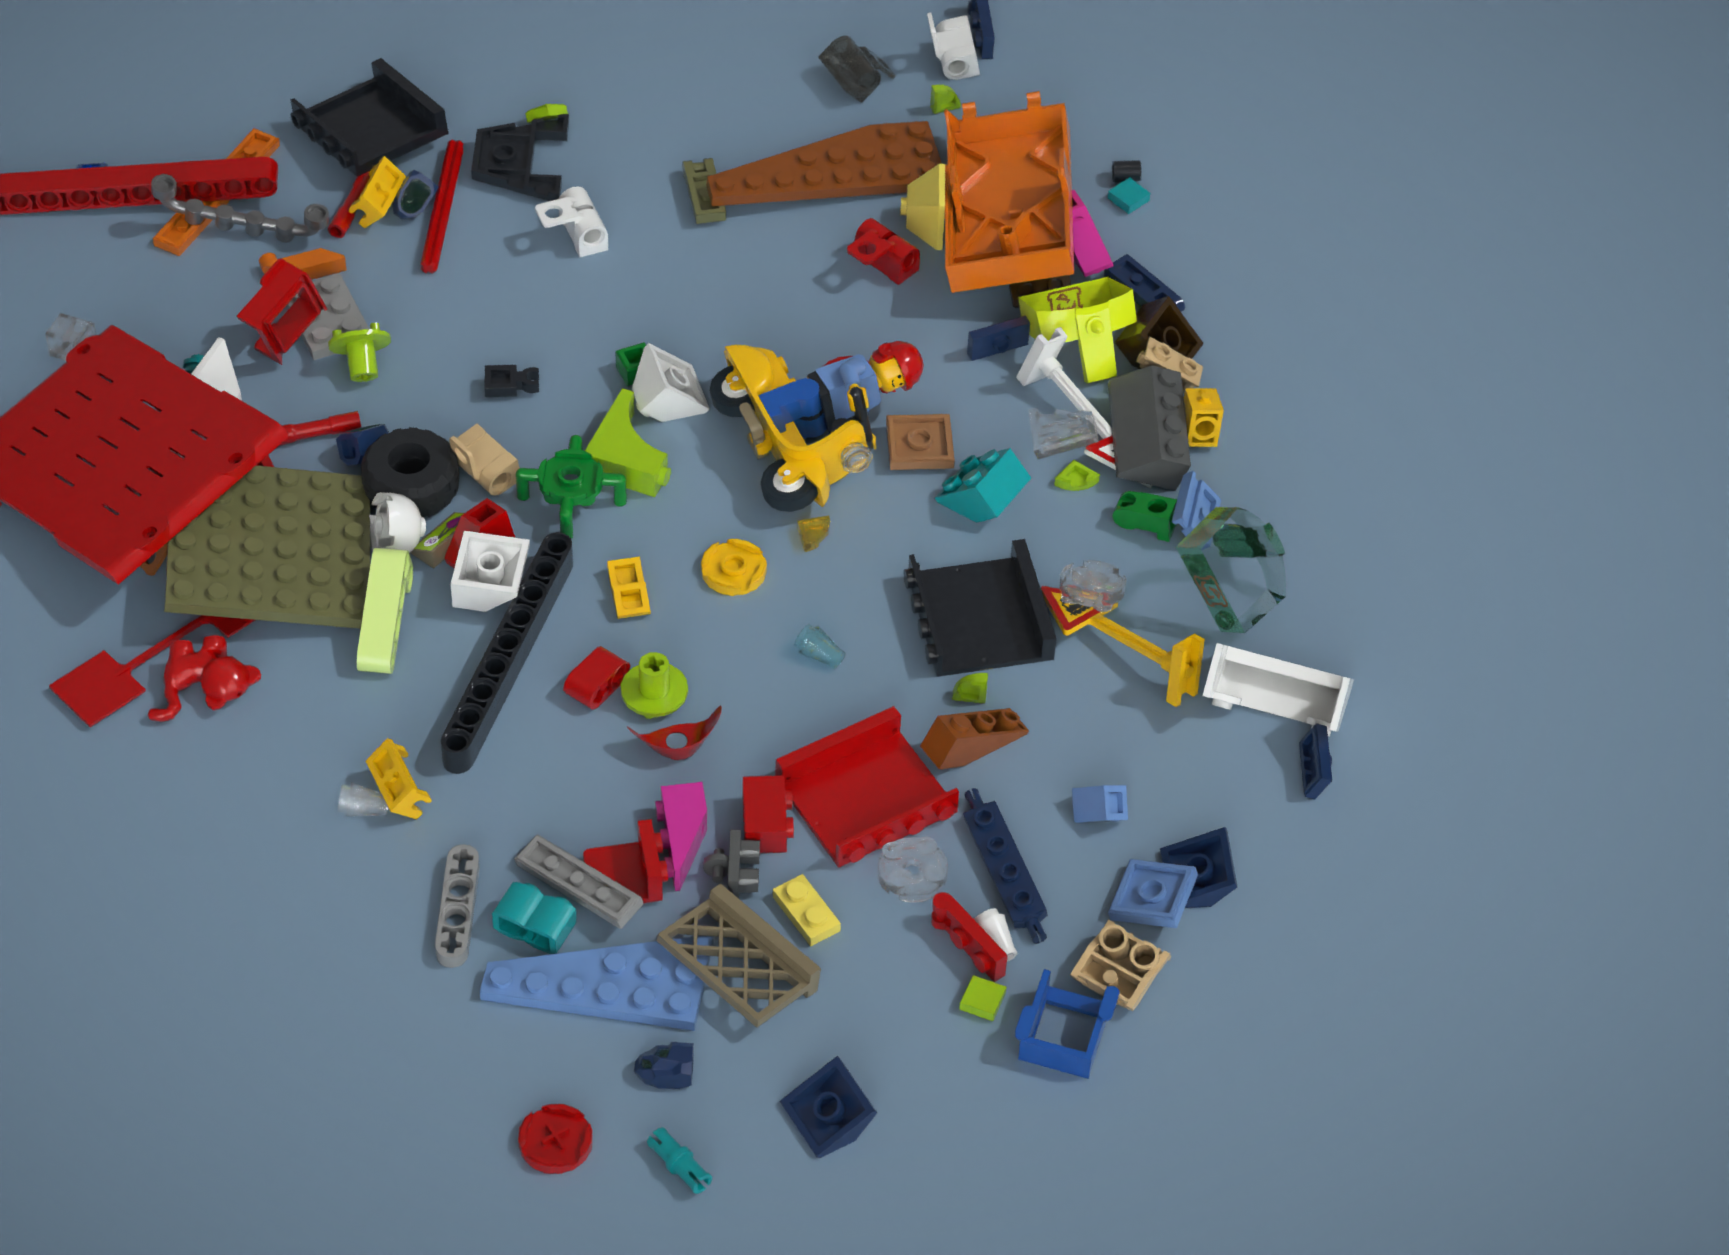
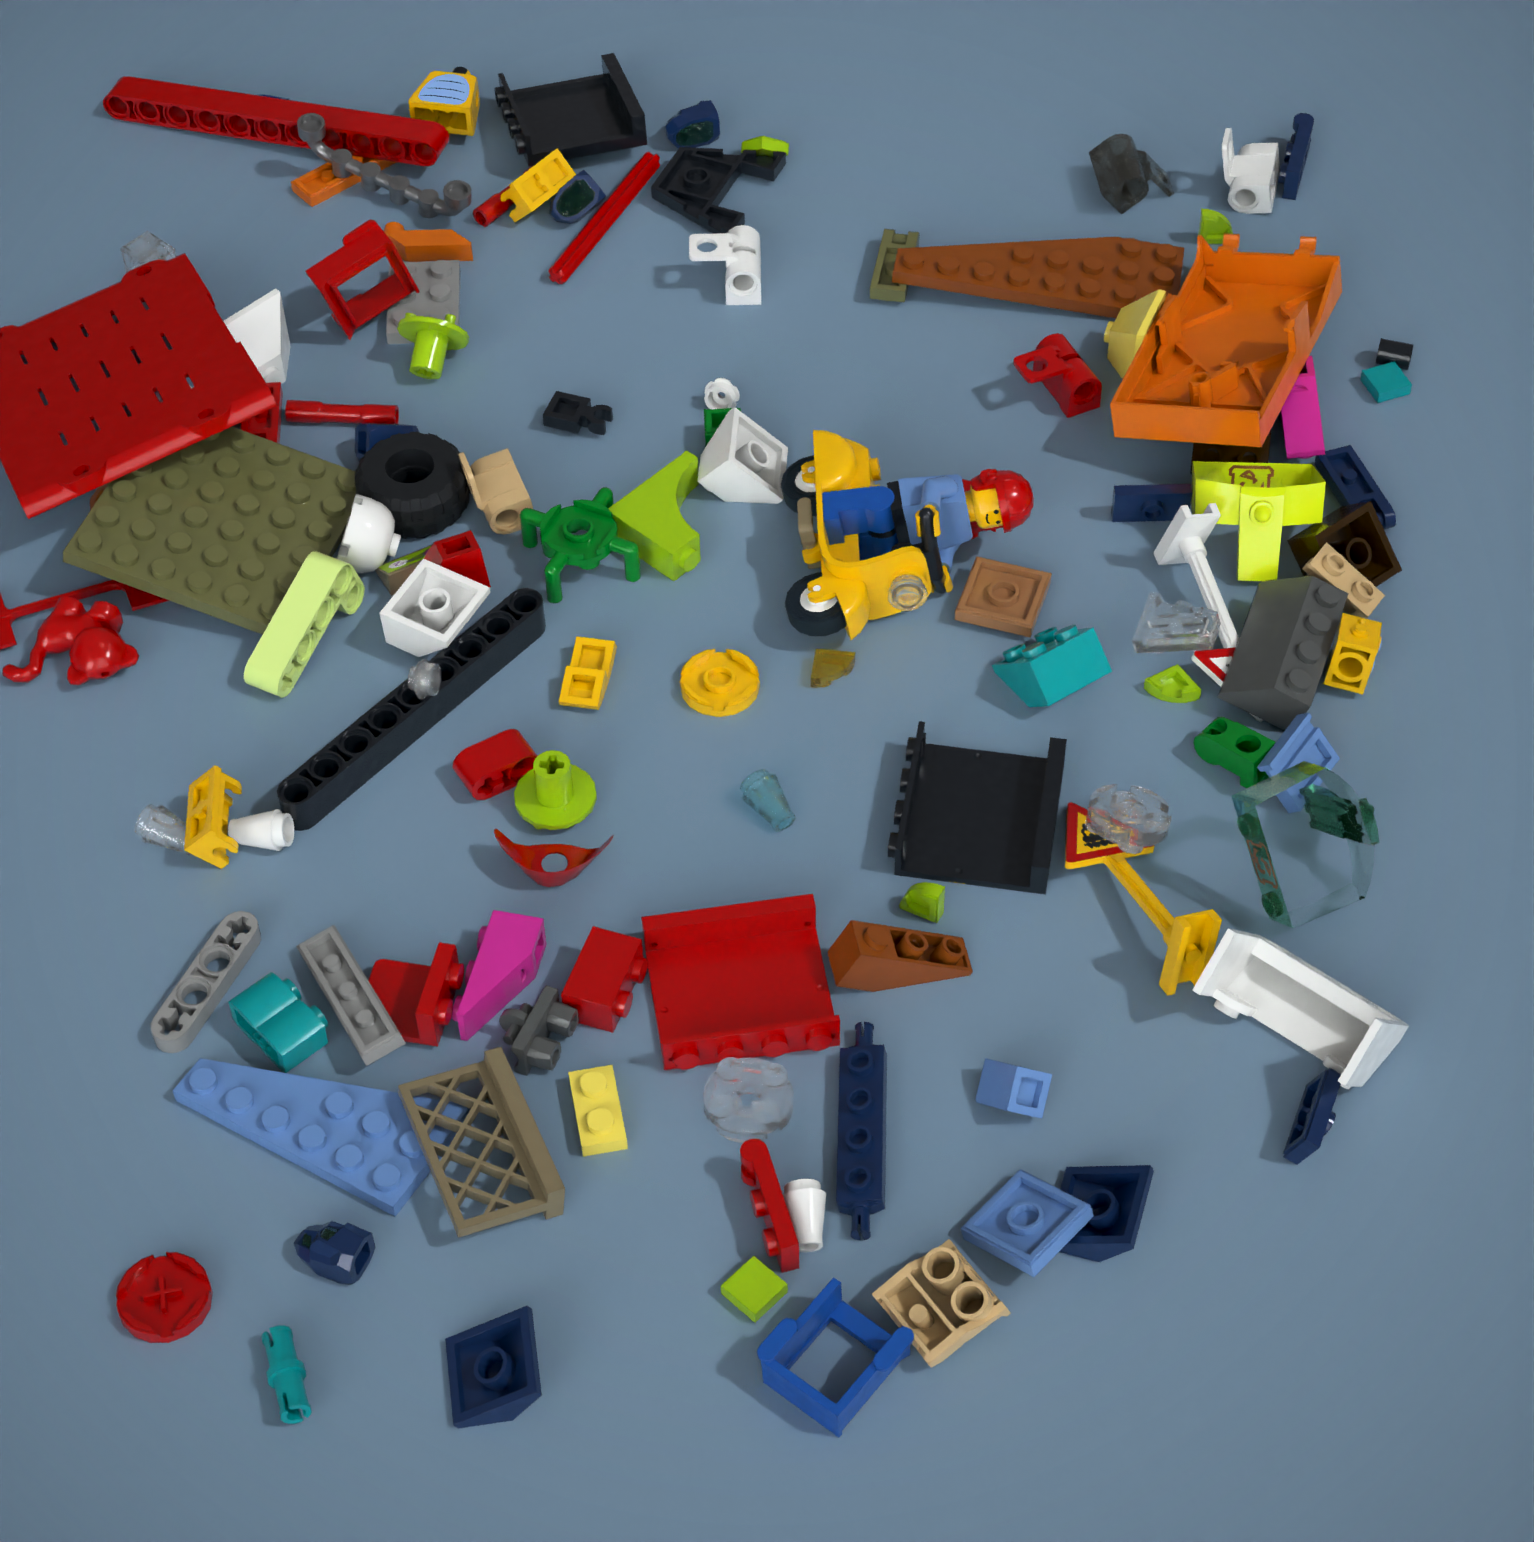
camera: 25 degrees right, 0 degrees up
(260, 133) = (448, 100): none -> yellow torso
(440, 779) = (263, 830): none -> white cone
(478, 106) = (694, 126): none -> dark blue rock
(515, 626) = (424, 679): none -> clear plate
(619, 342) = (715, 400): none -> white plate

